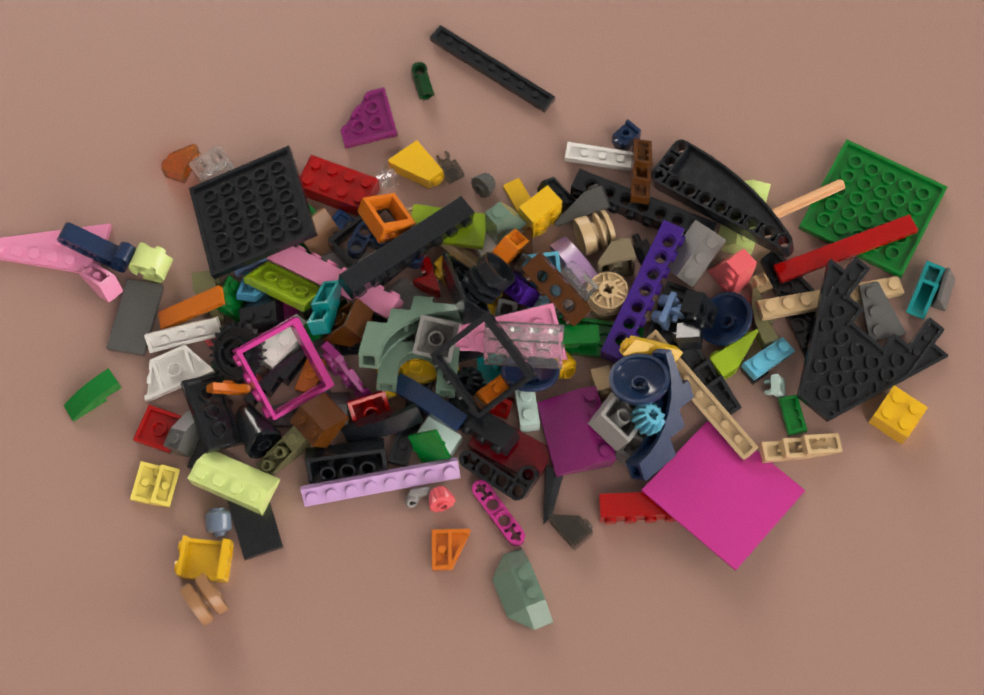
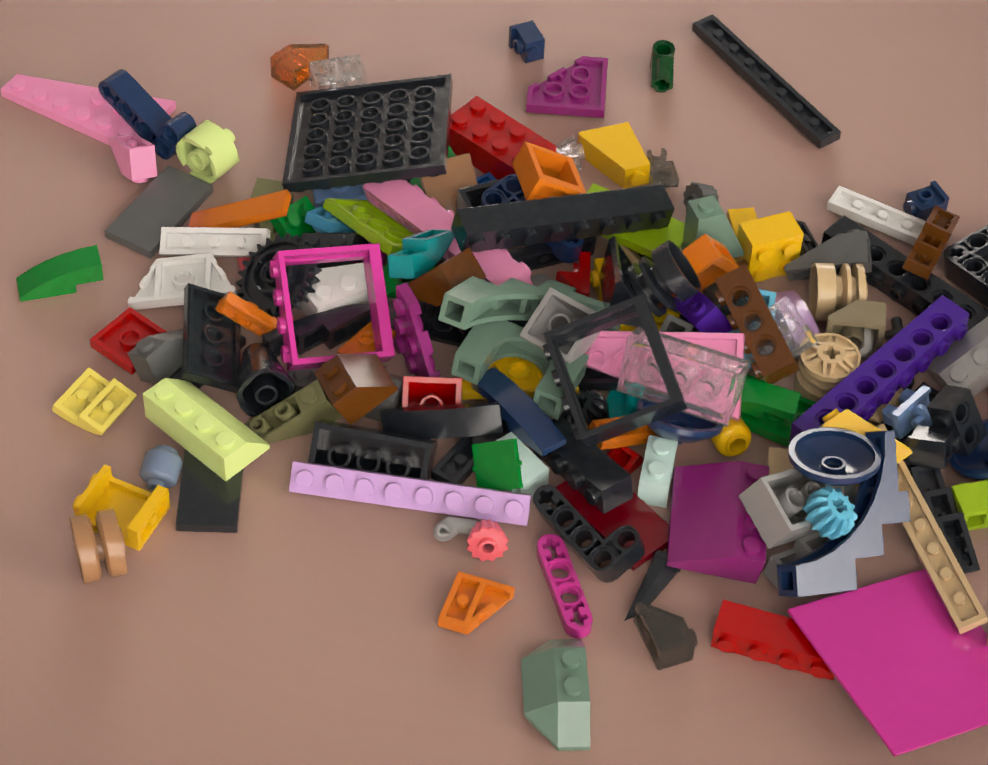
camera: 15 degrees right, 20 degrees down
(326, 91) = (527, 41): none -> dark blue brick

